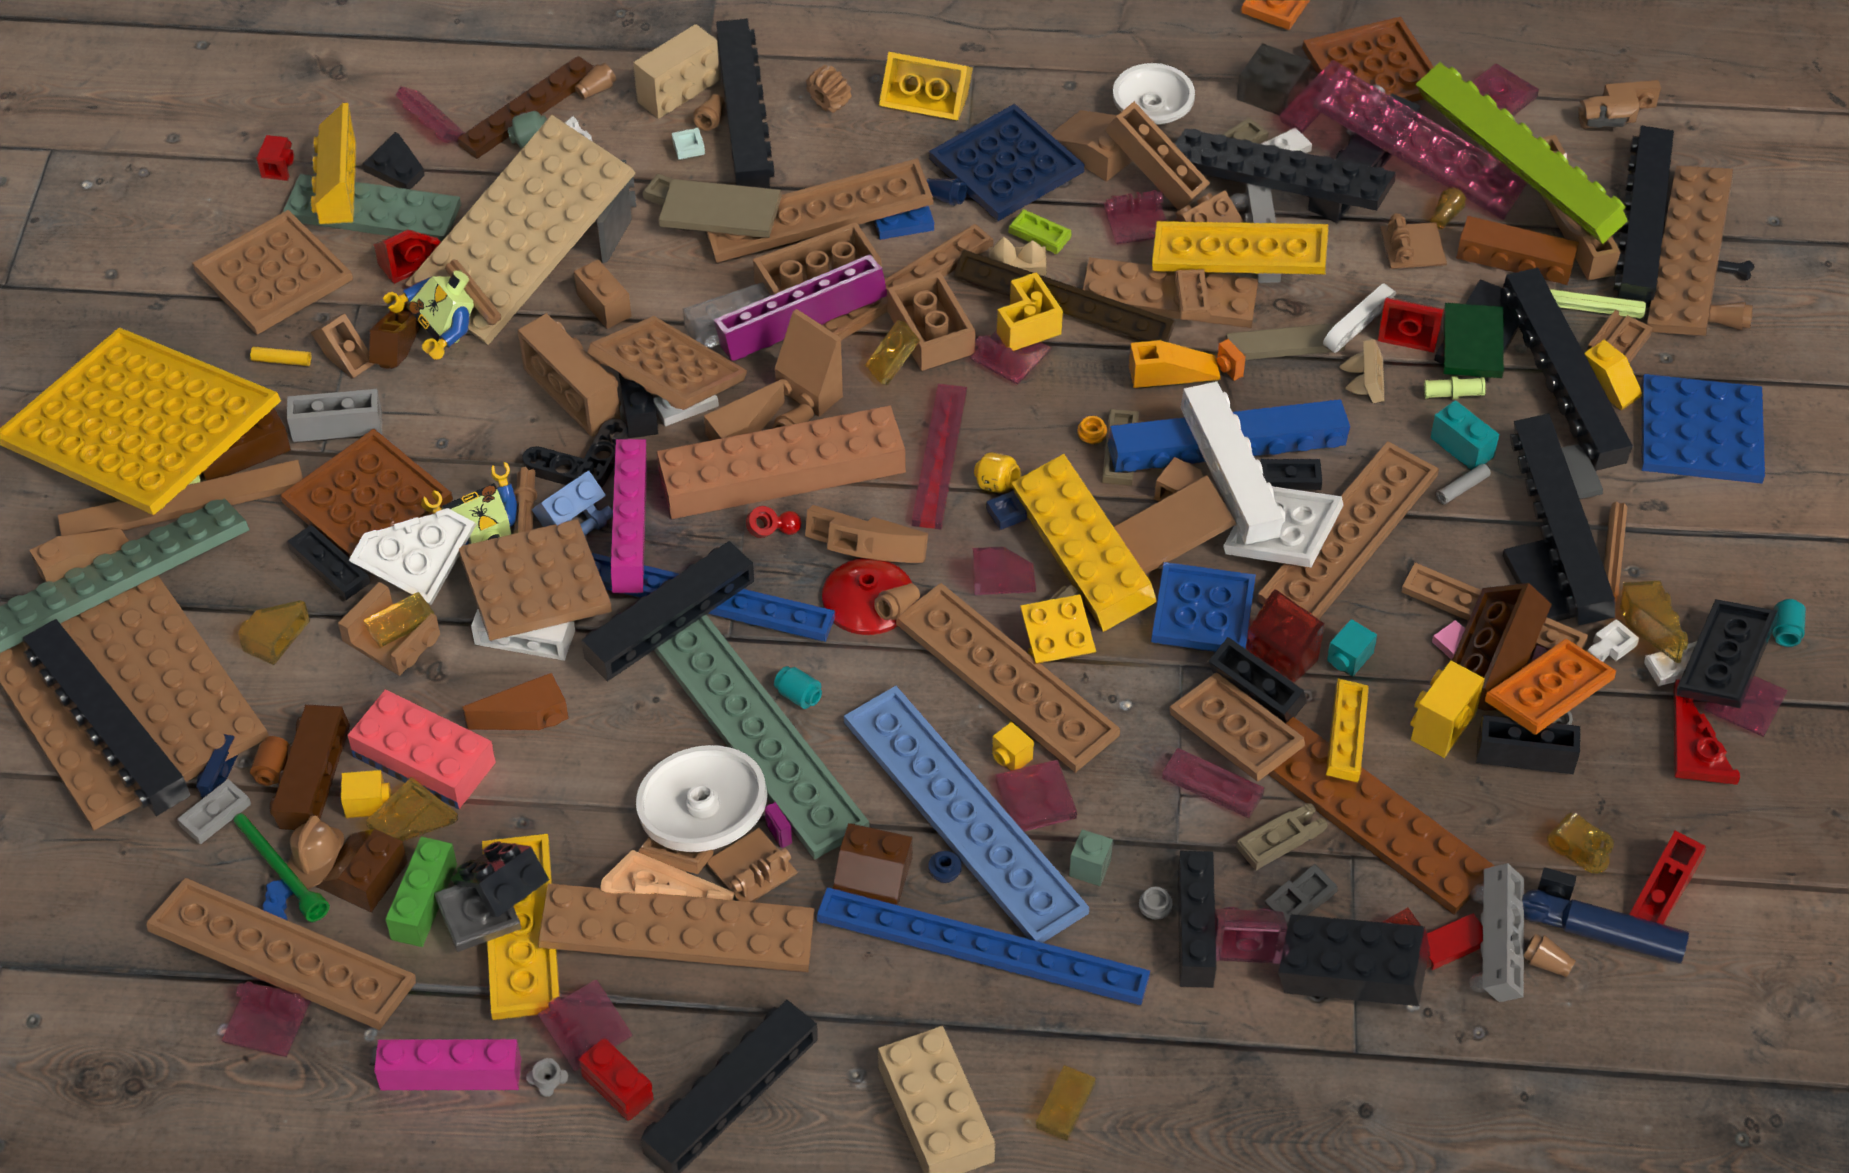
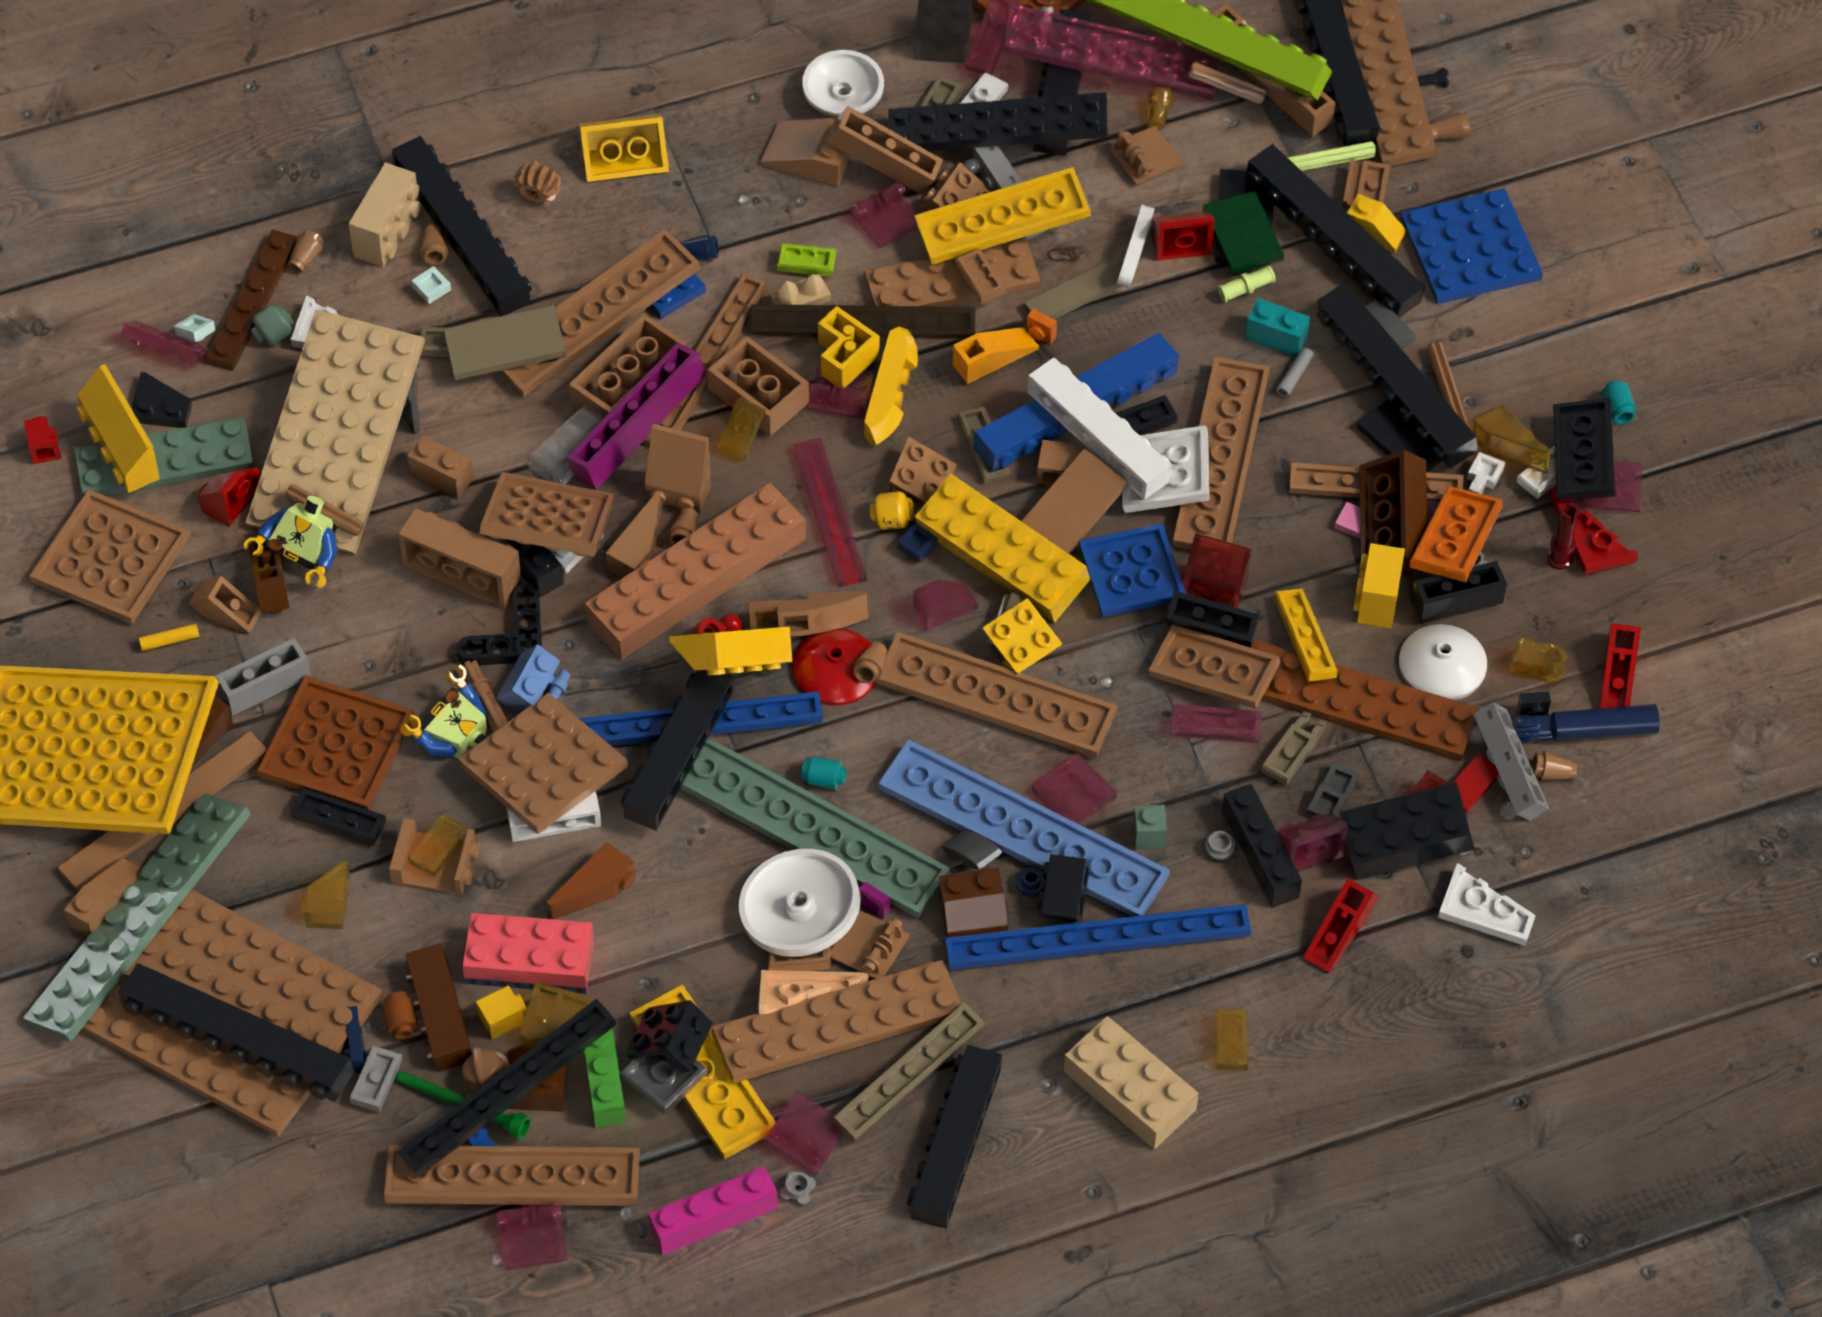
camera: 25 degrees left, 5 degrees up
(313, 863) = (507, 1088): none -> black plate
(415, 552) = (420, 778): white plate -> none
(462, 112) = (194, 328): none -> light aqua plate
(616, 1079) = (859, 1166): red brick -> none
(629, 516) = (592, 672): dark pink brick -> none
(718, 1005) = (908, 1072): none -> dark tan plate
(768, 539) = (735, 650): none -> yellow slope
(899, 811) = (972, 849): none -> dark grey slope
(970, 883) = (1064, 888): none -> black brick
(1007, 161) = (739, 199): dark blue plate -> none
(1012, 747) = (1035, 756): yellow plate -> none
(1042, 443) = (919, 470): none -> medium nougat hinge
(1056, 361) = (886, 400): none -> yellow brick
(1092, 430) = (952, 432): light orange plate -> none
(1241, 1029) = (1341, 925): none -> red slope
(1351, 647) = (1273, 559): teal brick -> none
(1371, 364) = (1161, 286): tan tile -> none
(1401, 1072) = (1482, 909): none -> white wing
(1479, 822) = (1439, 673): none -> white dish
(1517, 249) = (1240, 129): dark orange brick -> none
(1524, 205) = (1227, 82): none -> medium nougat axle
(1662, 735) = (1563, 542): none -> dark red pin

